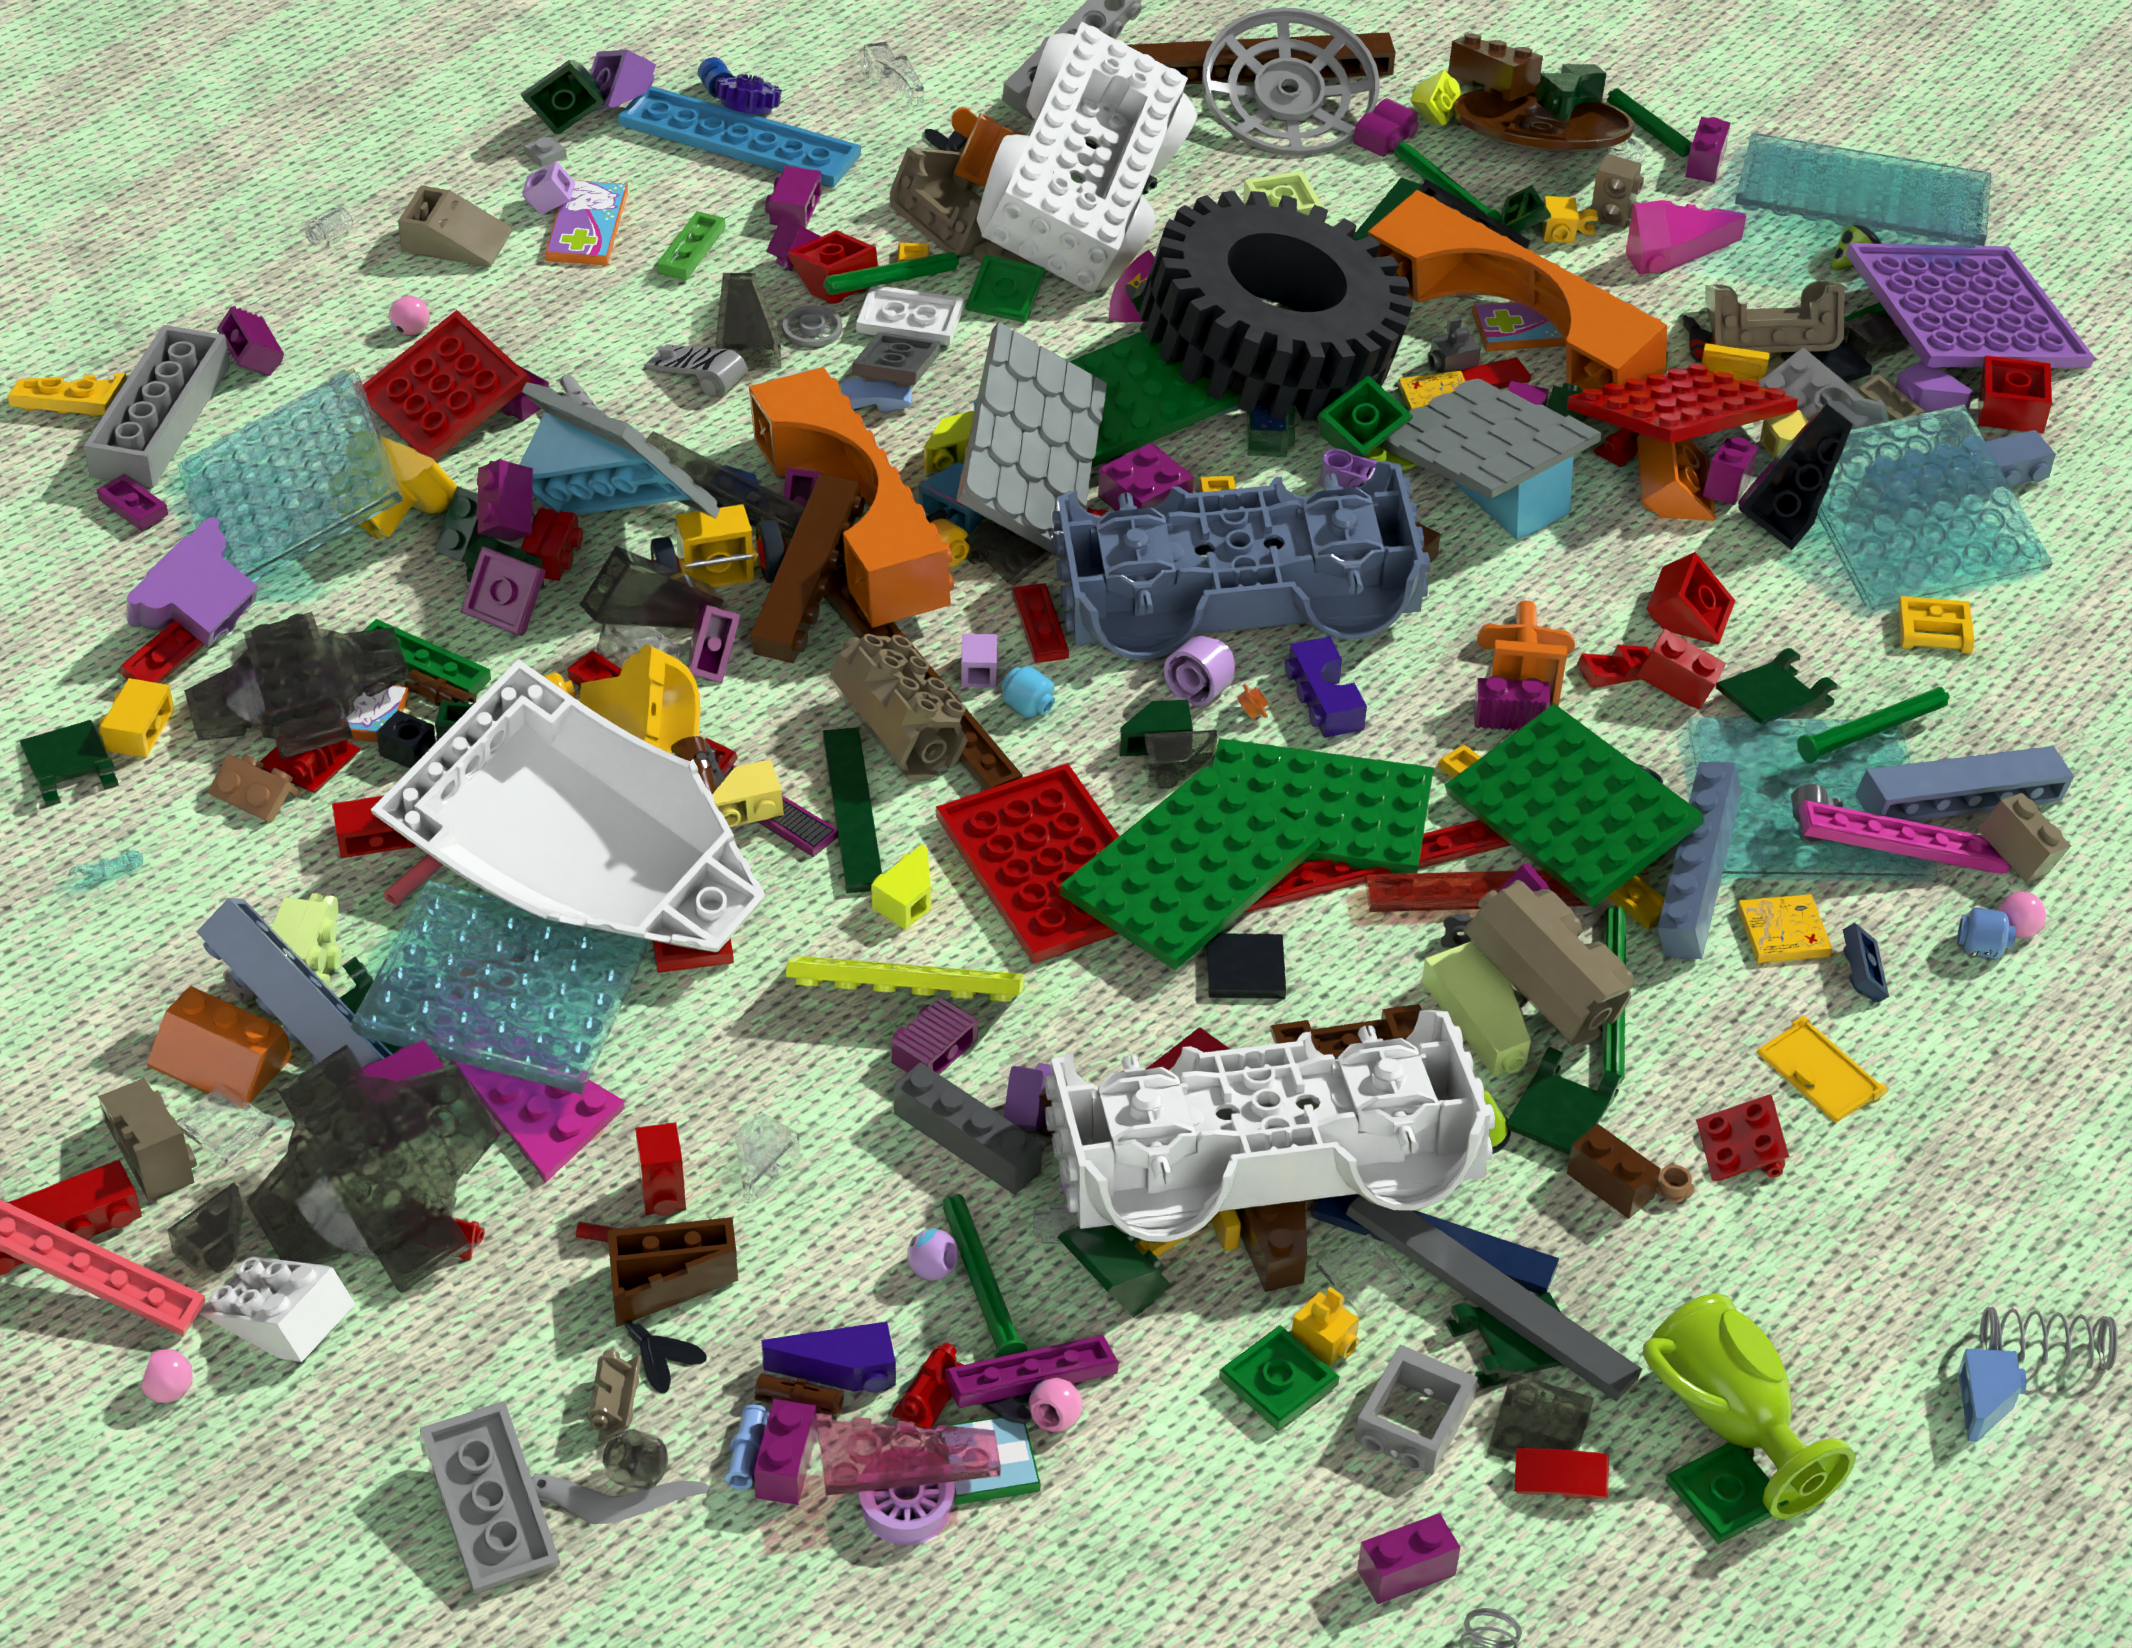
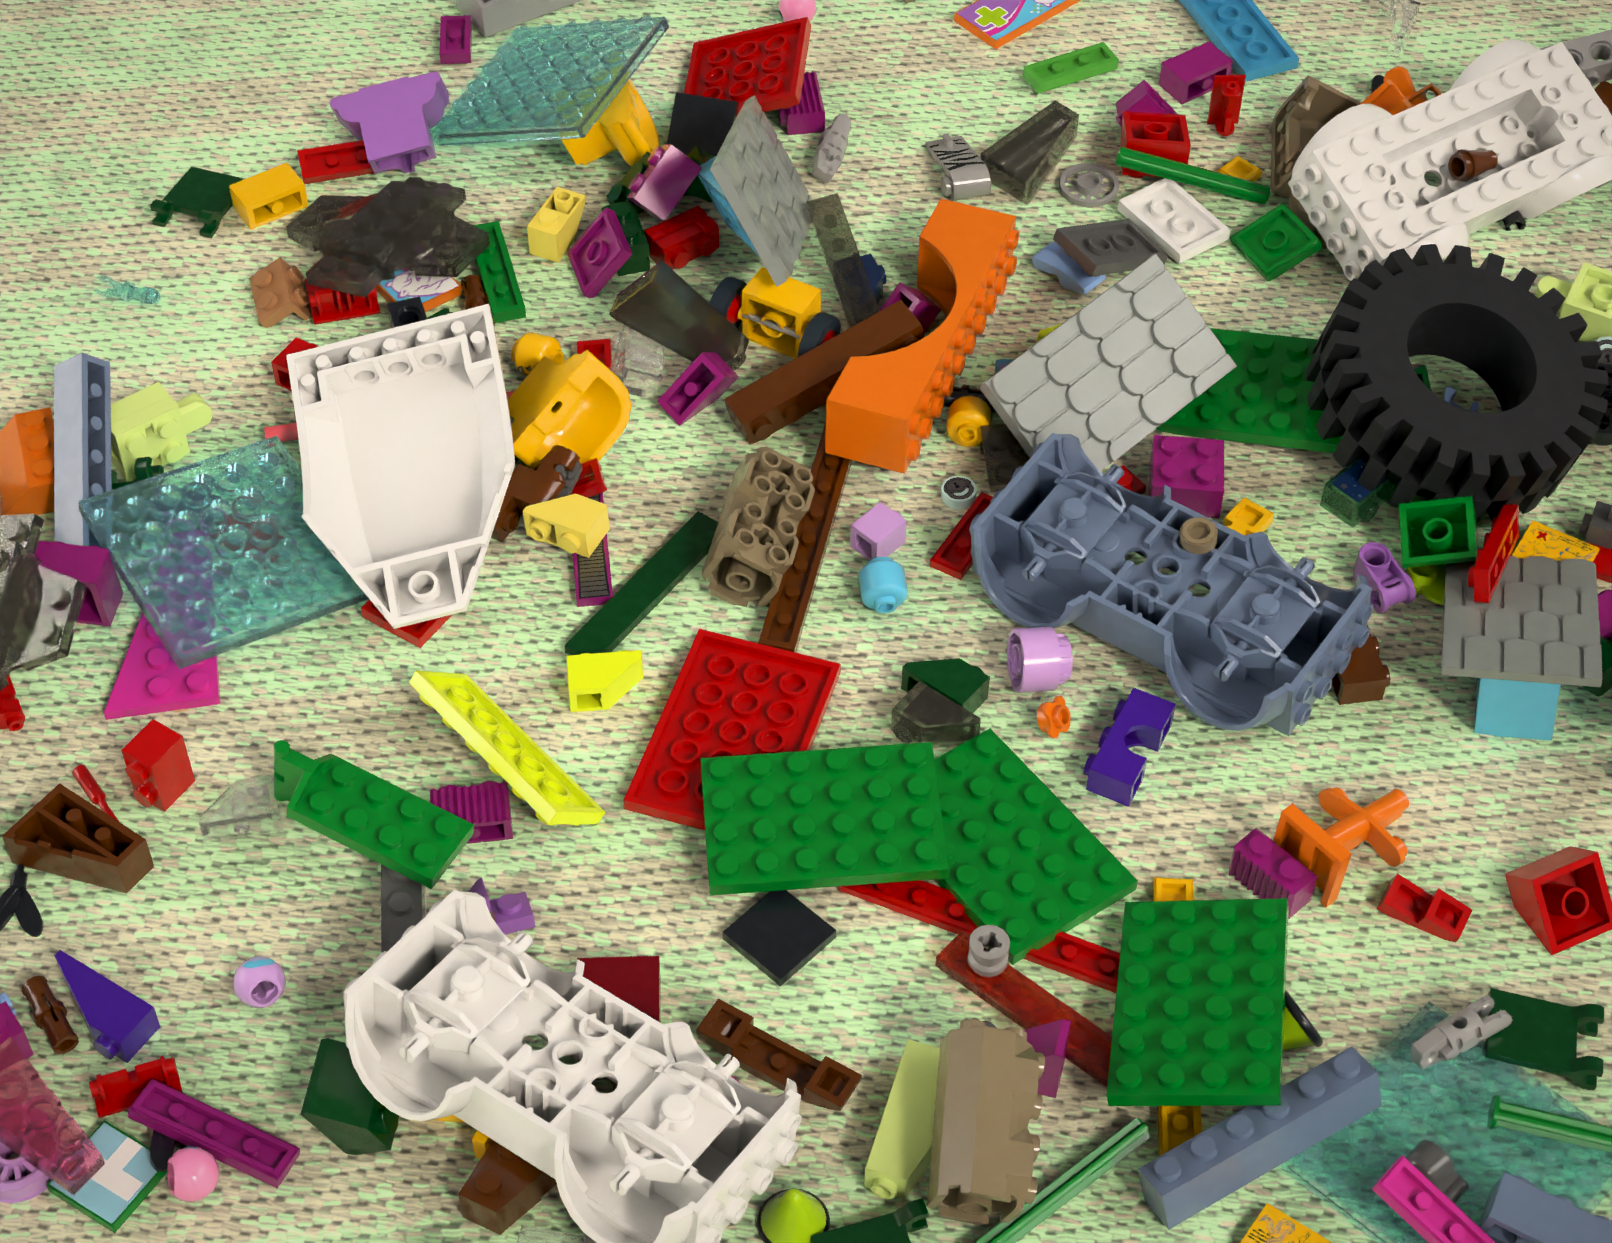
camera: 45 degrees right, 5 degrees up
(432, 592) = (556, 224): none -> light yellow slope
(459, 445) = (700, 122): none -> black tile
(854, 204) = (1226, 102): none -> red hinge
(883, 1078) = (369, 814): none -> green hinge
(982, 1277) = (275, 1031): green axle -> none
(994, 599) = (958, 492): none -> tile
(1099, 149) = (1471, 163): none -> reddish brown cone
(1240, 504) = (1198, 535): none -> dark tan tile
(1406, 869) = (990, 961): none -> light grey wheel
(1424, 410) = (1495, 553): none -> red plate
(1681, 669) = (1465, 952): red brick -> none
(1736, 717) = (1458, 1033): none -> light grey hinge

